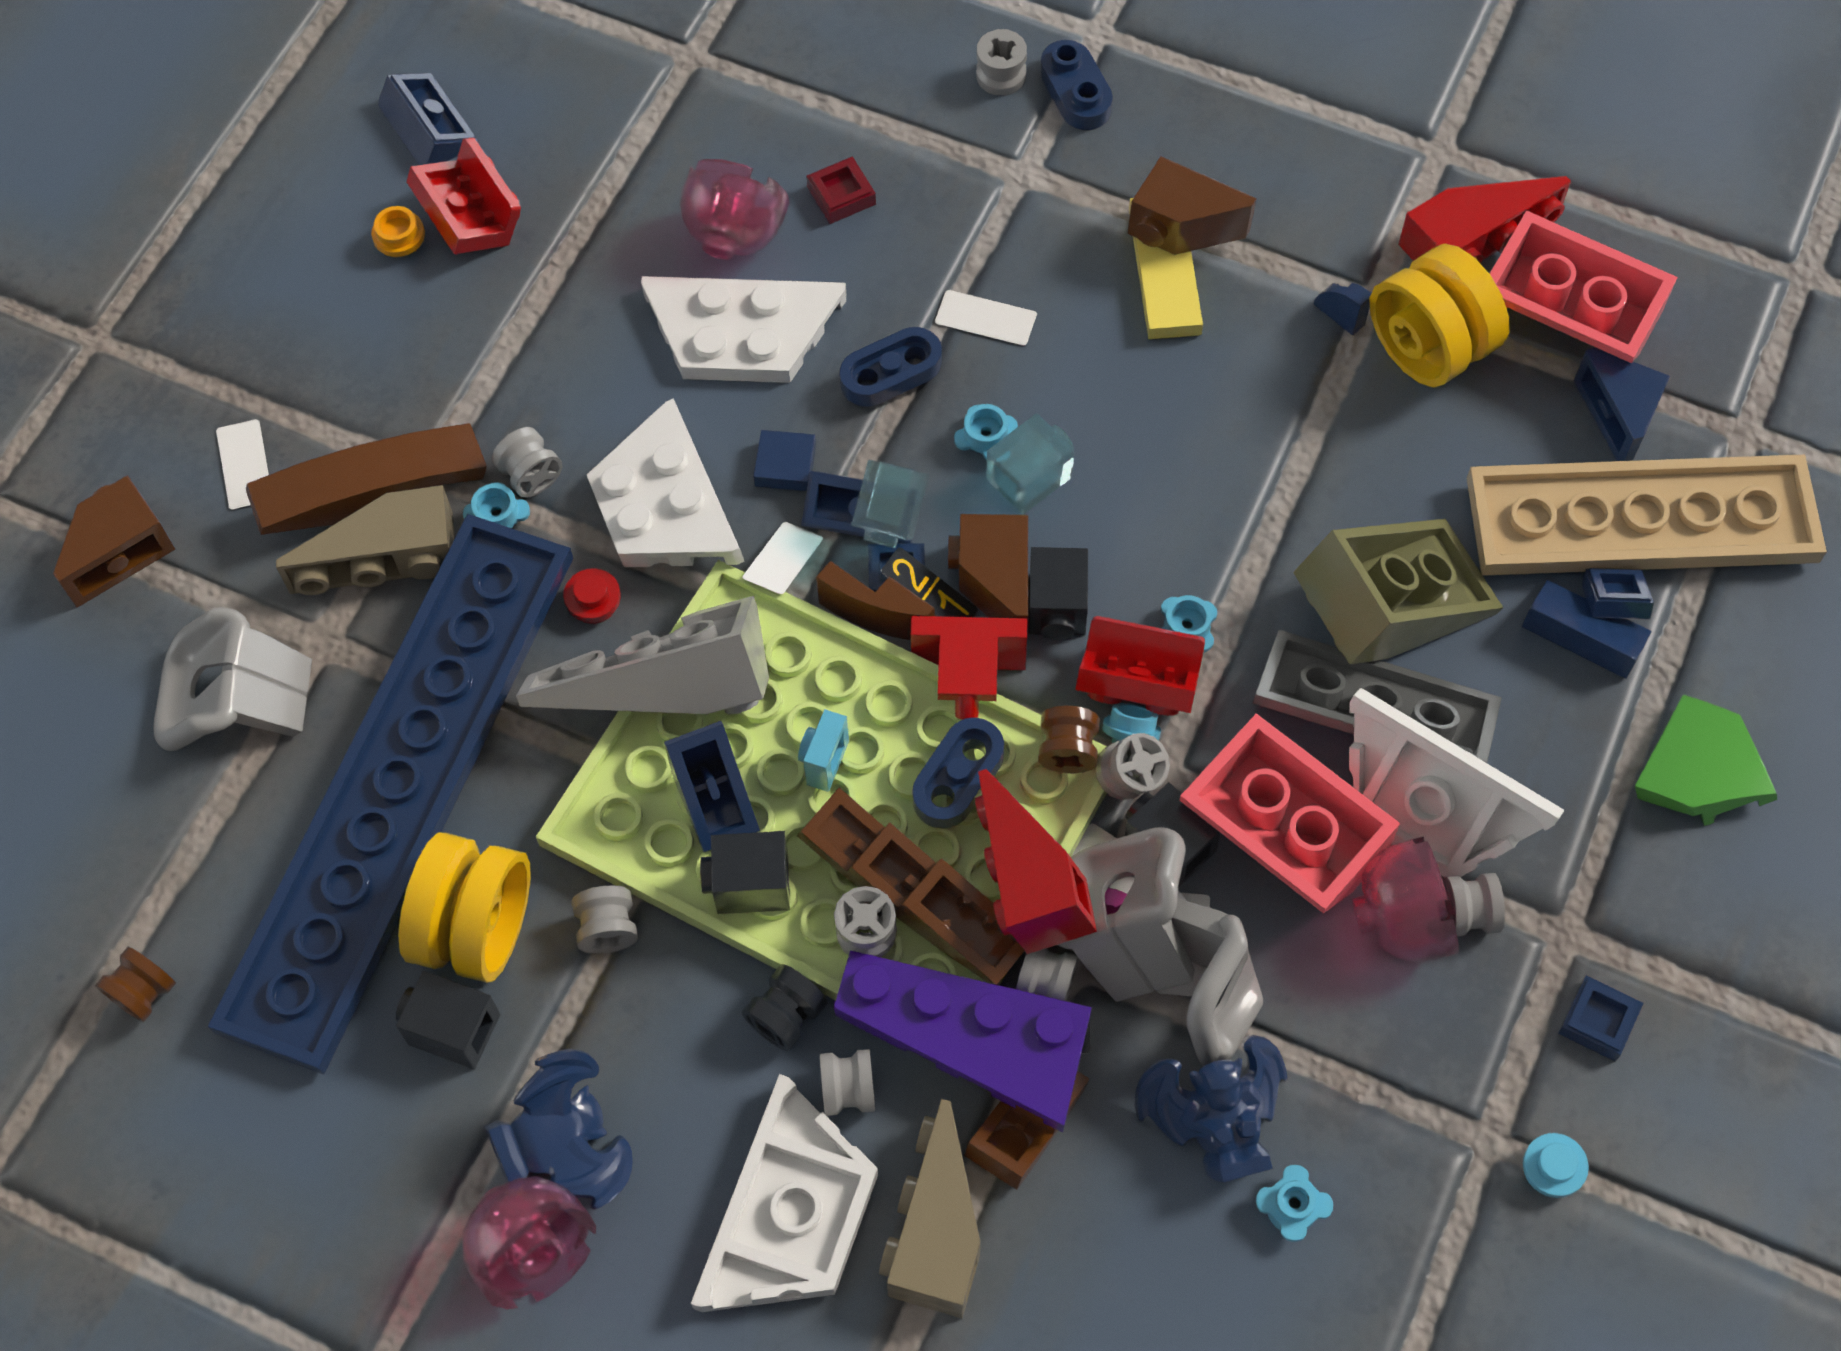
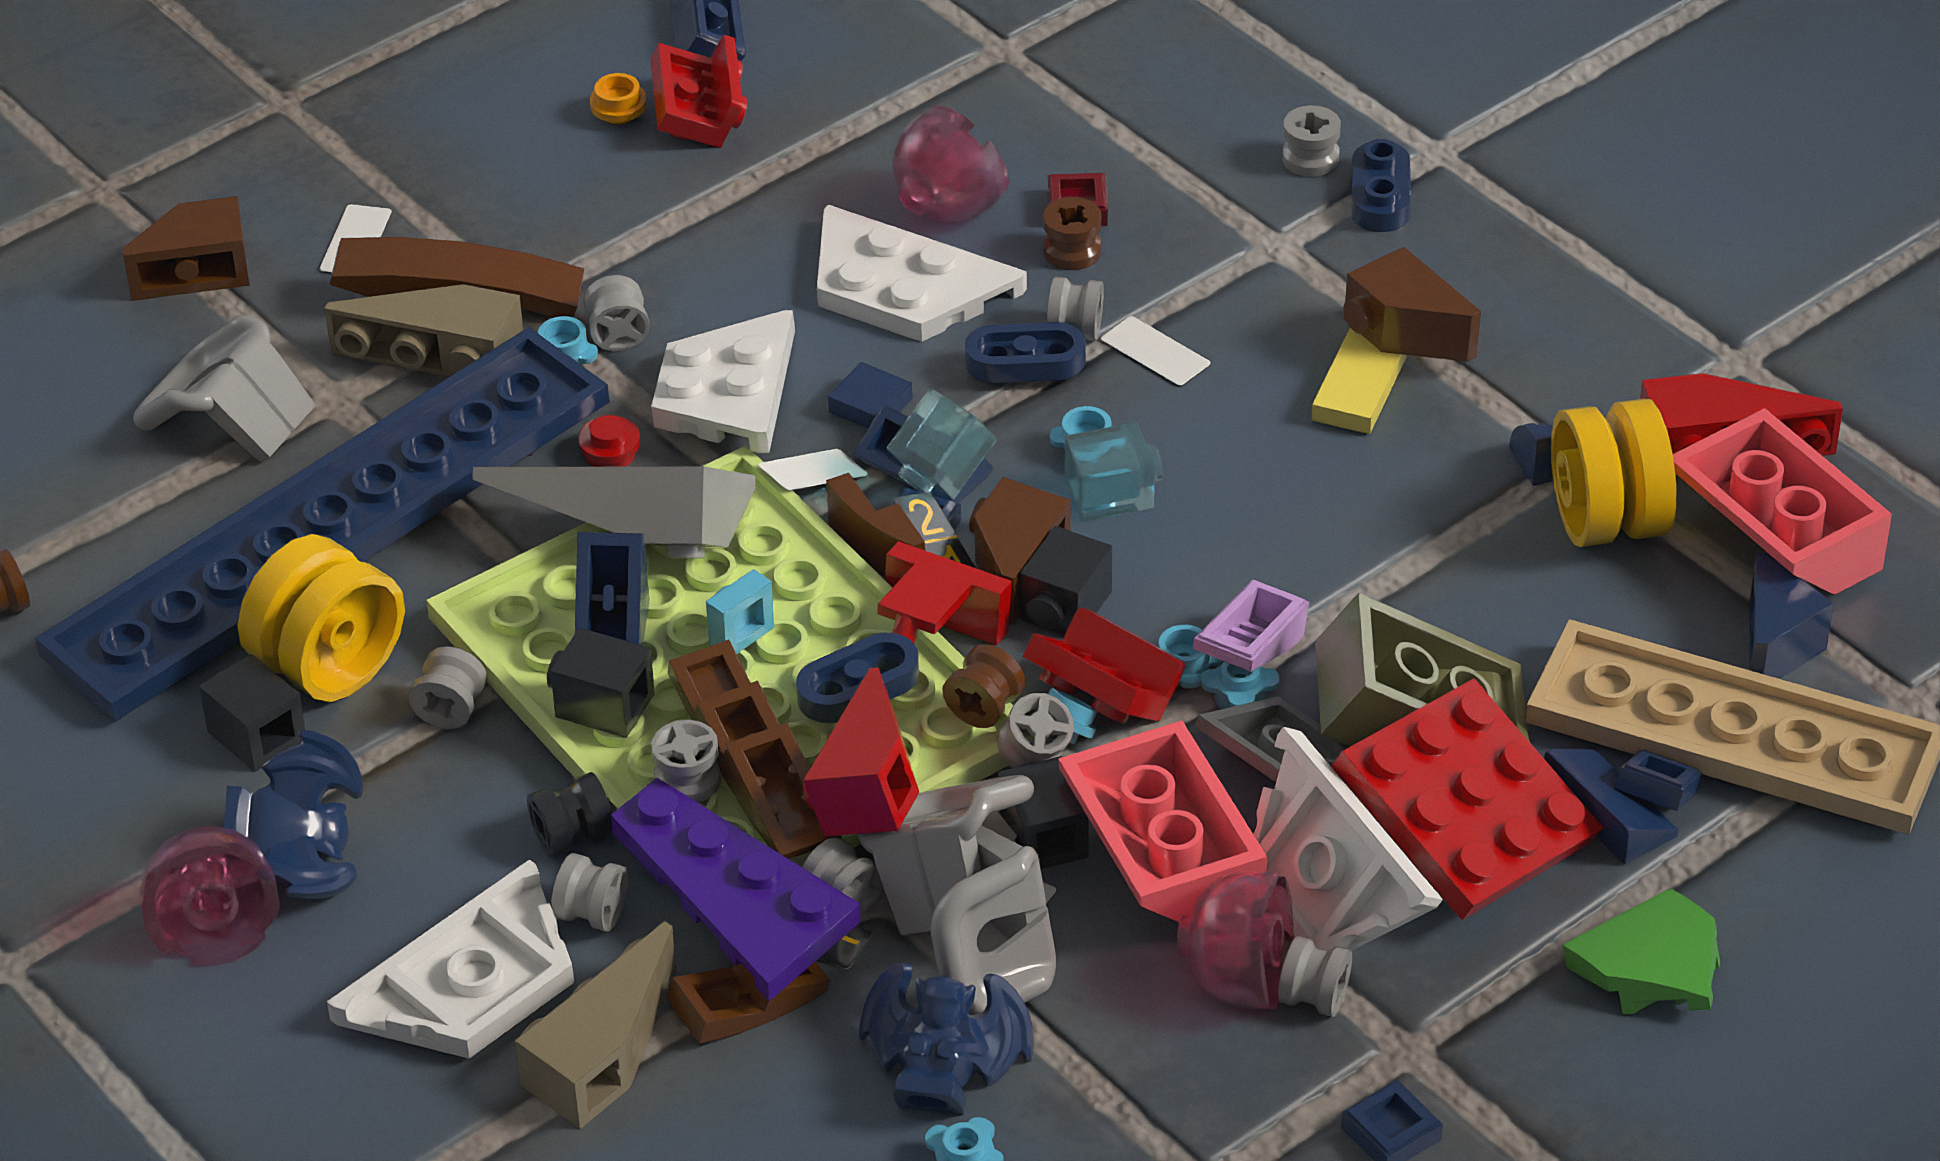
camera: 25 degrees right, 20 degrees down
(868, 241) = (1072, 233): none -> reddish brown wheel
(909, 305) = (1077, 305): none -> light grey wheel
(1238, 553) = (1254, 627): none -> lavender slope
(1240, 644) = (1238, 686): none -> medium azure plate
(1505, 686) = (1467, 798): none -> red plate

